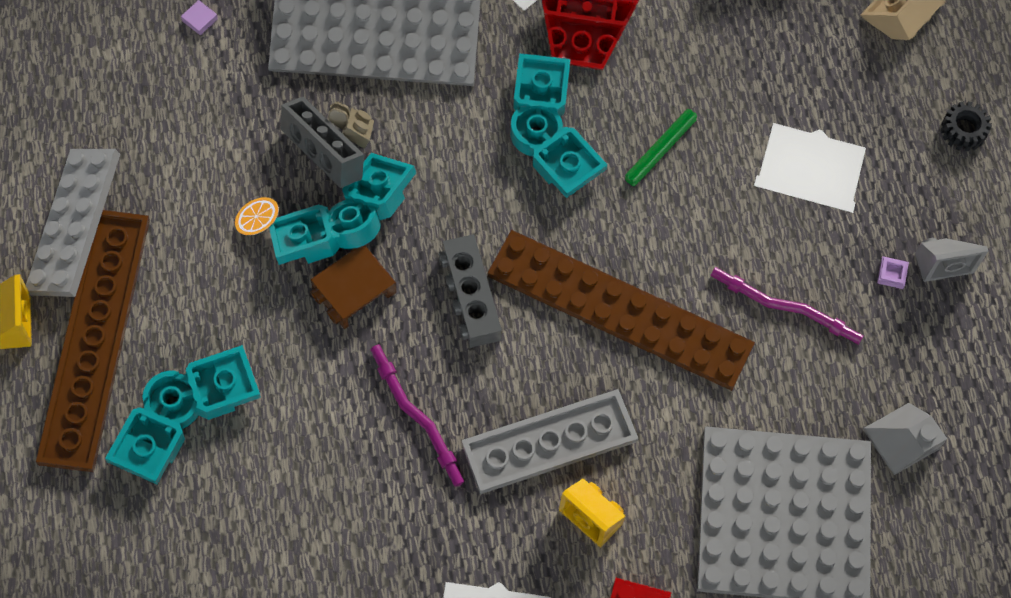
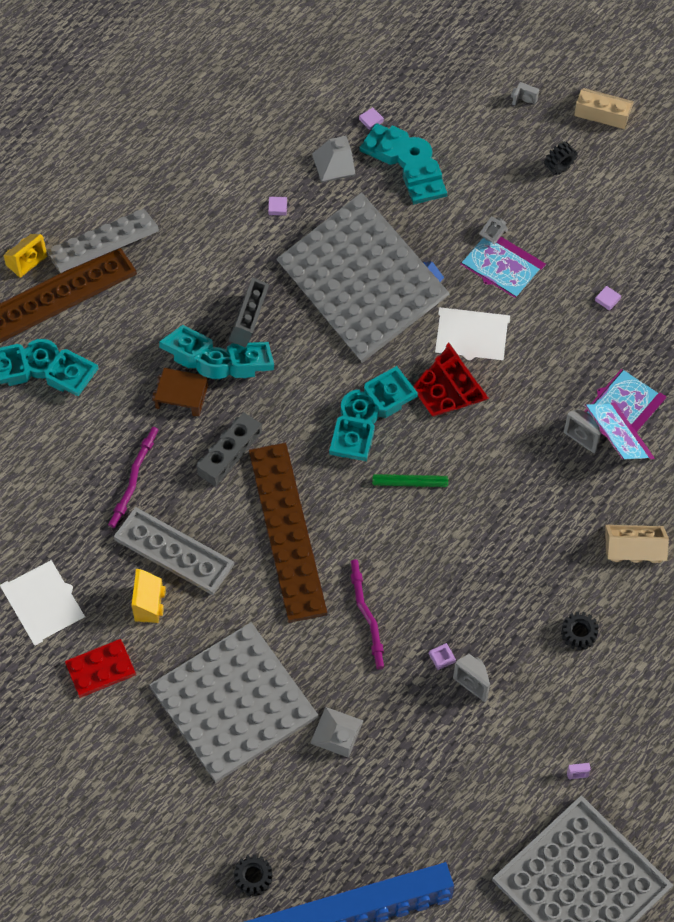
camera: 55 degrees right, 5 degrees down
(256, 216) = (182, 318): light orange sticker -> none
(355, 124) = (273, 320): dark tan hinge -> none
(811, 167) = (474, 568): white sticker -> none

